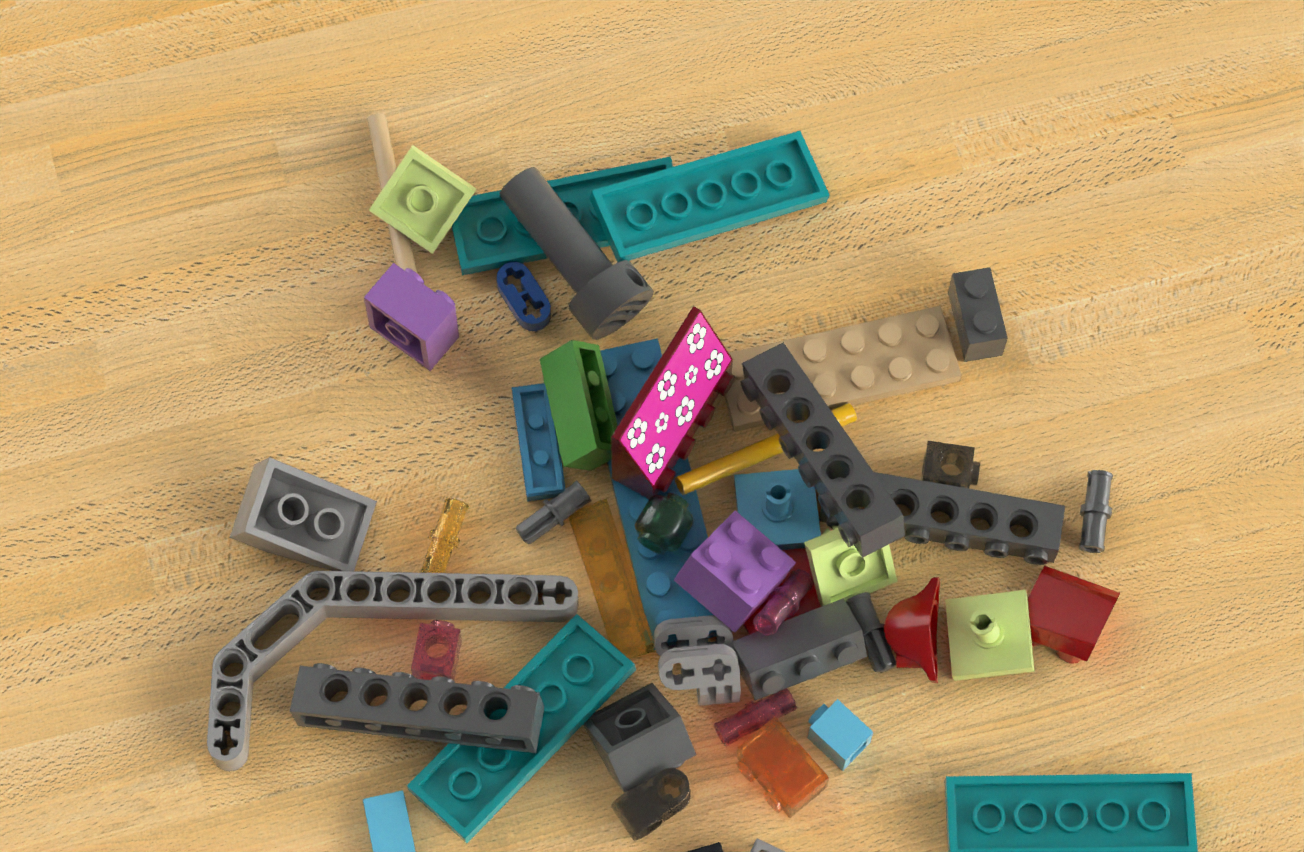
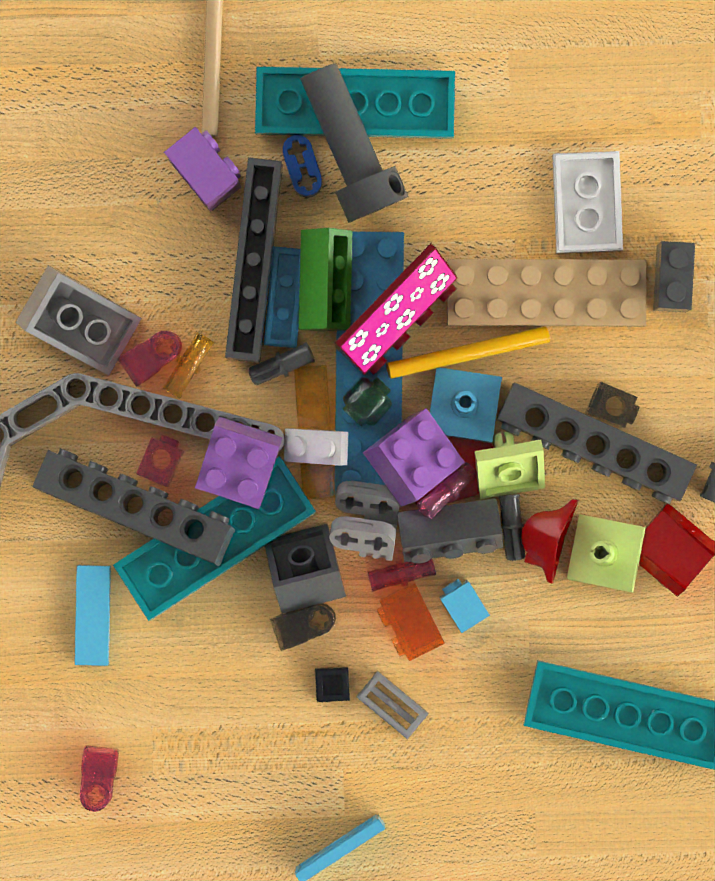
camera: 15 degrees right, 20 degrees up
(393, 542) = (146, 359): none -> clear pink piece
(422, 199) = (235, 65): yellowish green tile -> none
(494, 404) = (254, 260): none -> dark grey brick
(531, 620) = (238, 462): none -> medium lavender brick
(617, 591) = (316, 446): none -> white plate
(708, 196) = (477, 118): teal plate -> none
(779, 372) = (493, 294): dark grey brick -> none
(857, 263) = (587, 202): none -> white tile

